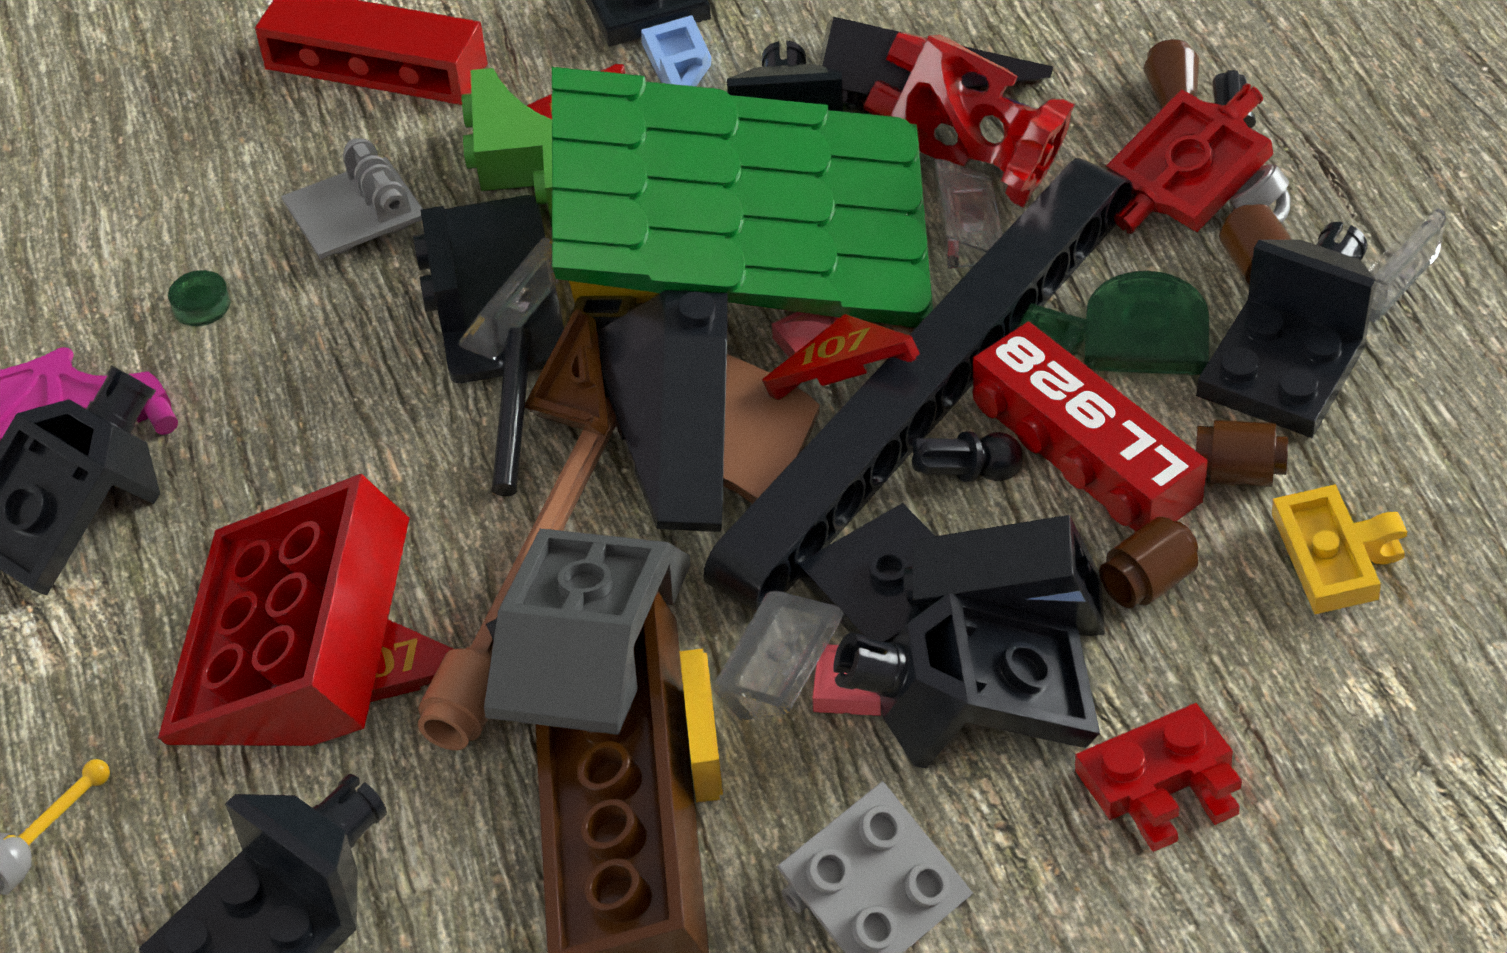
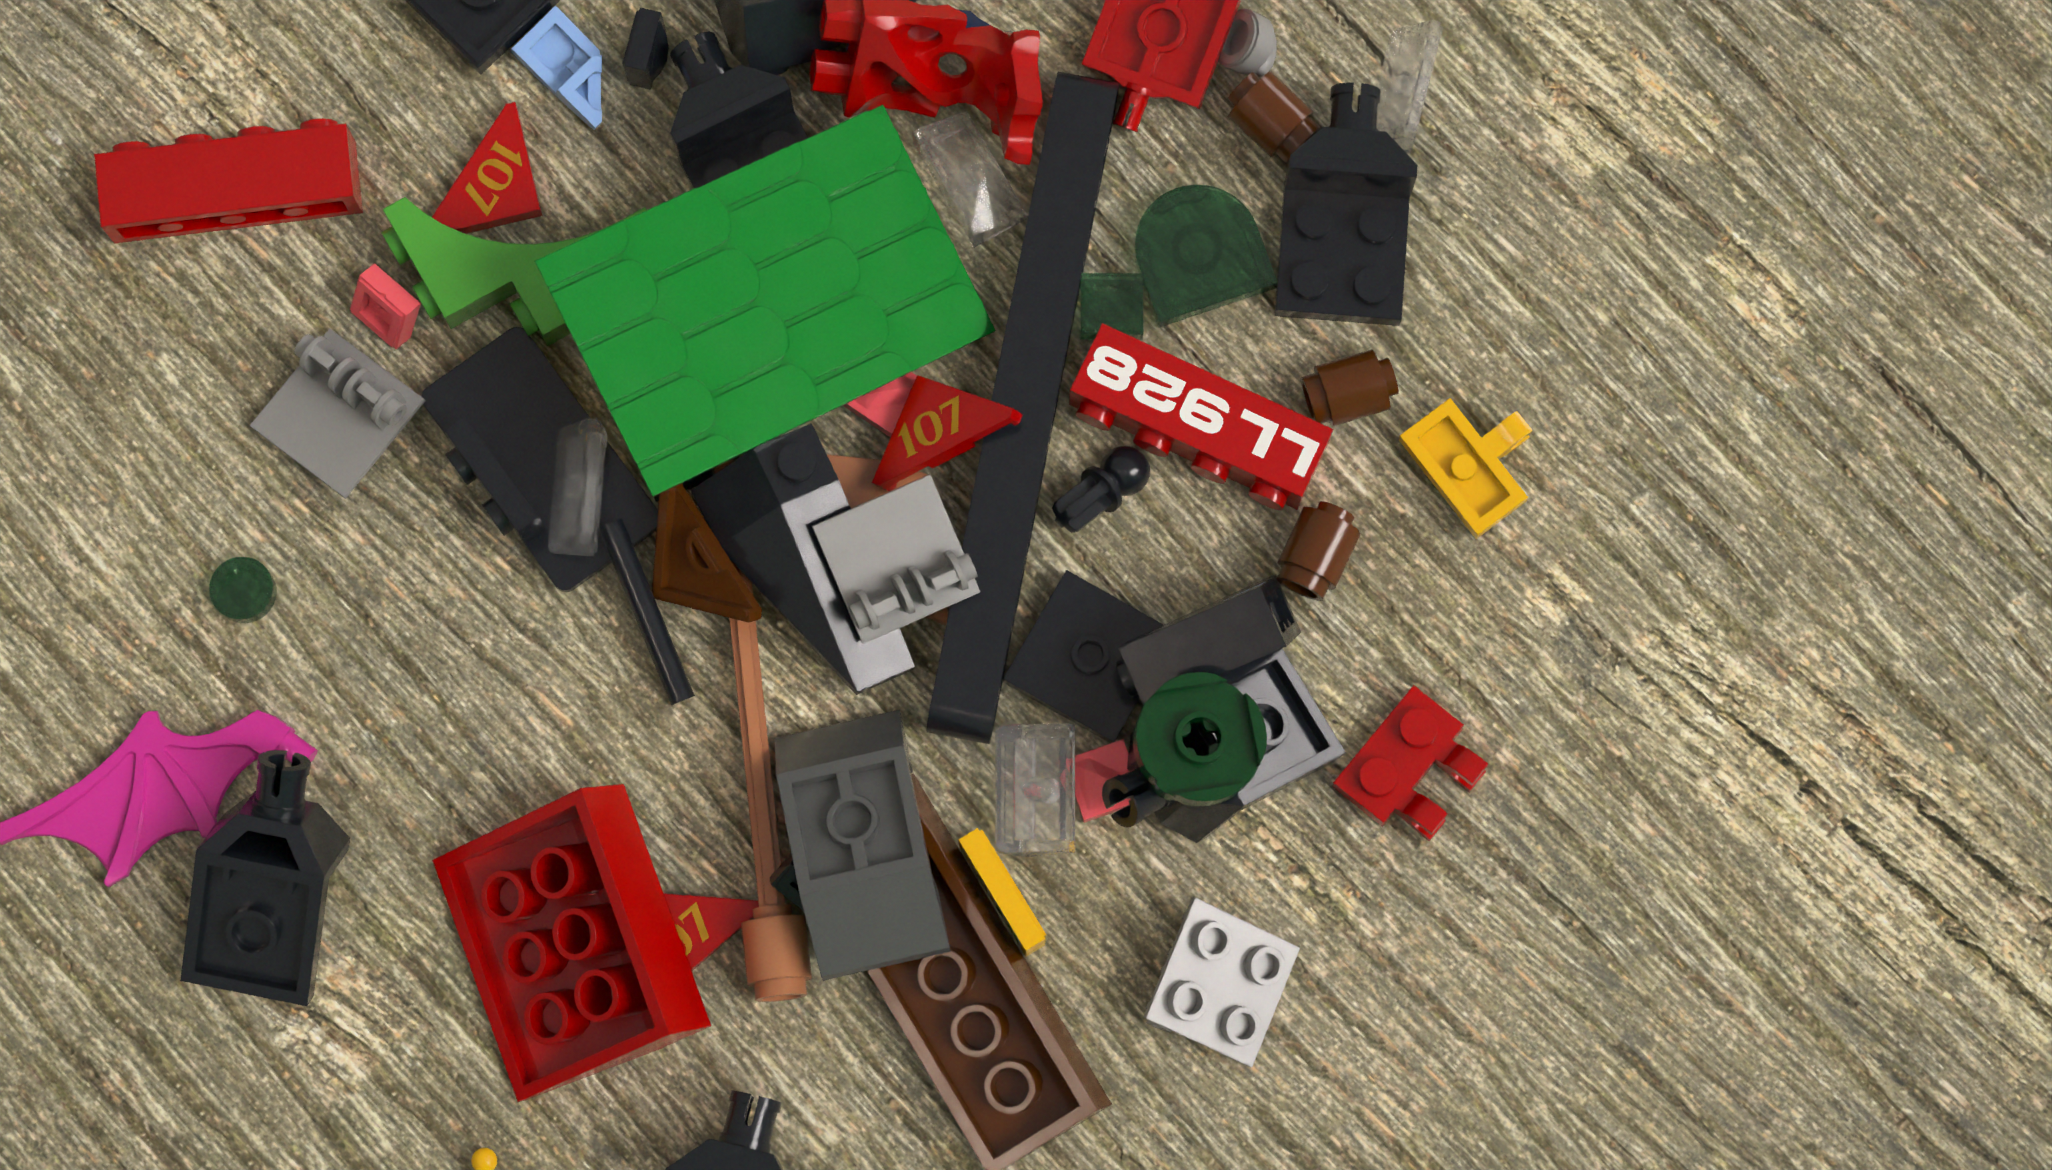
camera: 30 degrees left, 30 degrees up
(436, 148) = (385, 306): none -> coral tile
(744, 50) = (646, 49): none -> black tile
(745, 415) = (896, 559): none -> light grey hinge
(943, 654) = (1221, 709): none -> dark green plate

